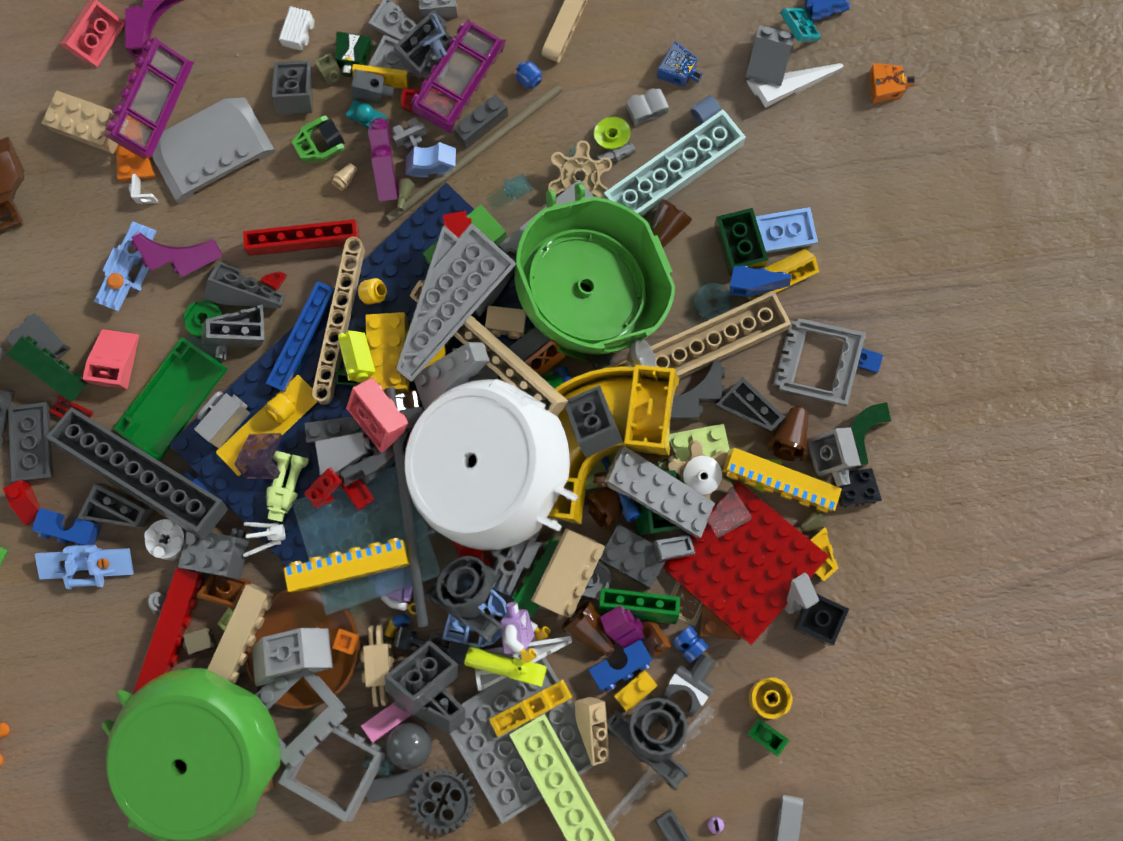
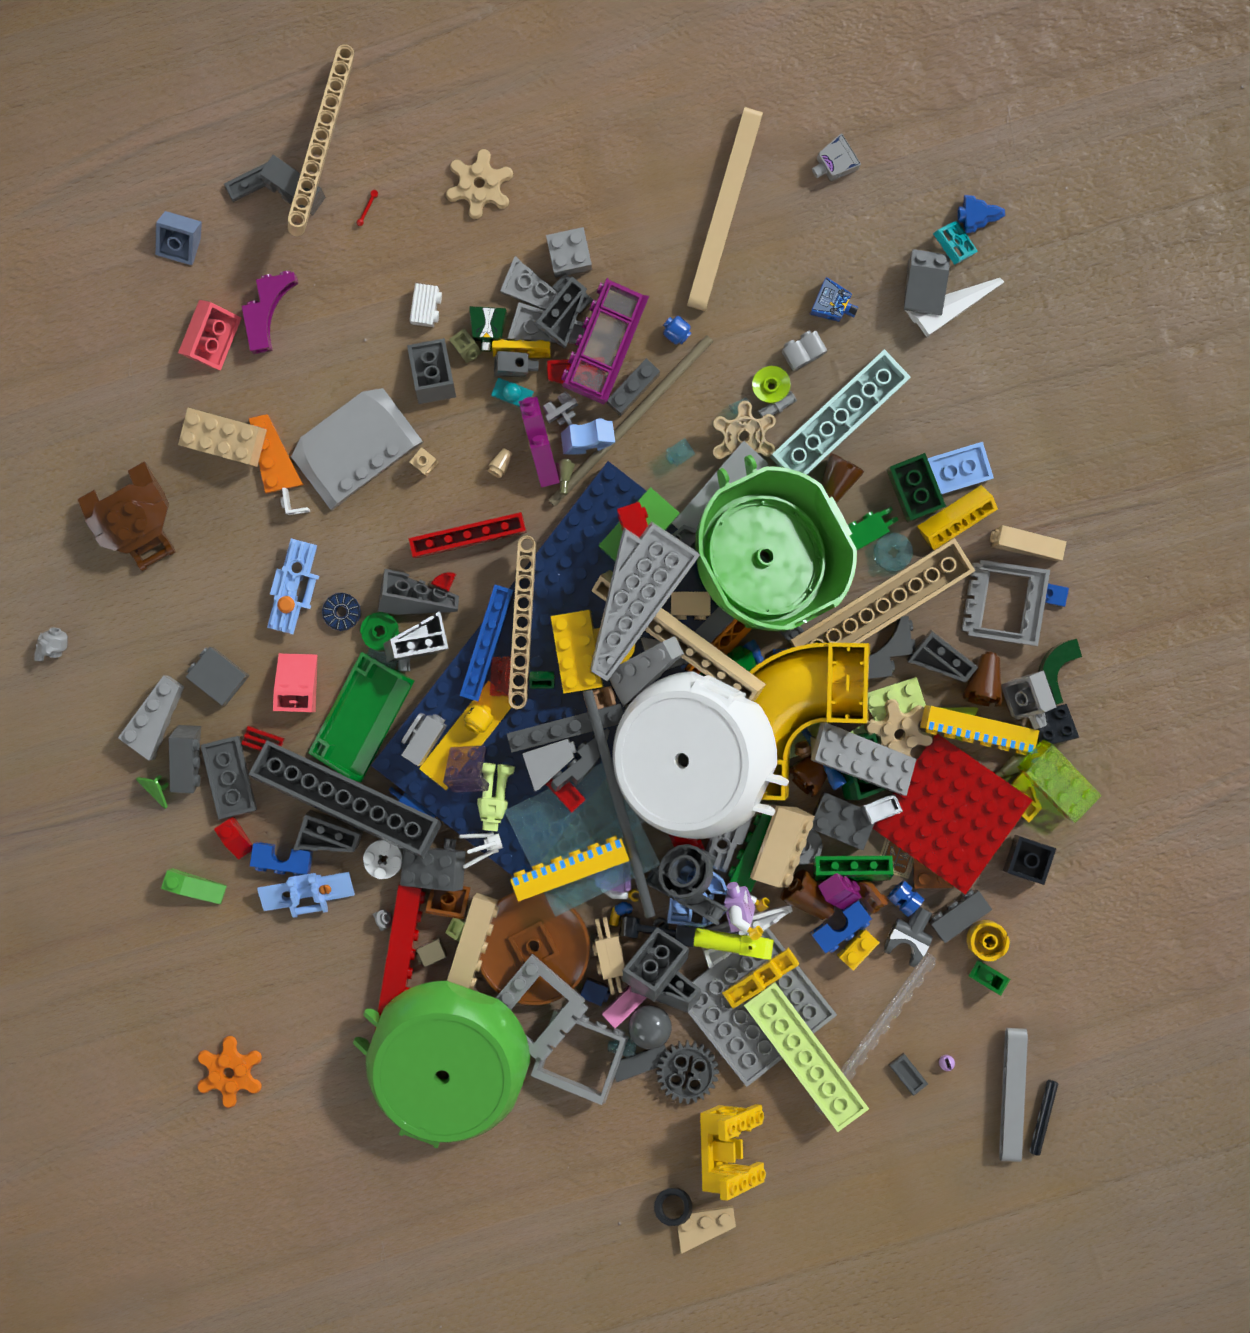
camera: 10 degrees left, 10 degrees up
(46, 368) = (235, 704): dark green brick -> none
(148, 98) = (287, 406): magenta window -> none
(159, 294) = (330, 611): none -> tile
(184, 258) = (350, 571): magenta arch -> none
(271, 166) = (424, 461): none -> tan brick
(291, 653) = (526, 957): light grey slope -> none
(308, 369) = (500, 676): none -> clear red bracket
(320, 491) = (537, 798): red bracket -> none
(330, 134) = (479, 420): bright green piece -> none
(345, 641) = (577, 938): orange plate -> none
(356, 356) = (548, 661): neon yellow brick -> none
(358, 702) = (595, 991): none -> dark blue brick
(372, 291) = (552, 589): yellow head -> none
(376, 414) = (579, 720): coral slope -> none
(433, 40) = (576, 311): sand blue bracket -> none
(592, 421) = (792, 702): dark grey slope -> none
(592, 724) = (822, 988): tan slope -> none
(641, 354) = (831, 626): light grey piece -> none
(650, 751) = (884, 1007): dark grey piece -> none
(693, 276) = (870, 528): none -> green hinge
(693, 470) = (897, 726): white dish -> none
(705, 110) = (866, 349): sand blue piece -> none
(728, 514) = (931, 769): clear wing -> none
(744, 668) = (959, 915): none -> dark grey brick
(752, 282) = (931, 533): blue slope -> none
(801, 594) = (1009, 841): light grey slope -> none
(845, 306) = (1027, 543): none -> tan slope
(858, 541) = (1059, 781): none -> clear neon green brick
(888, 82) = (1052, 295): orange torso -> none

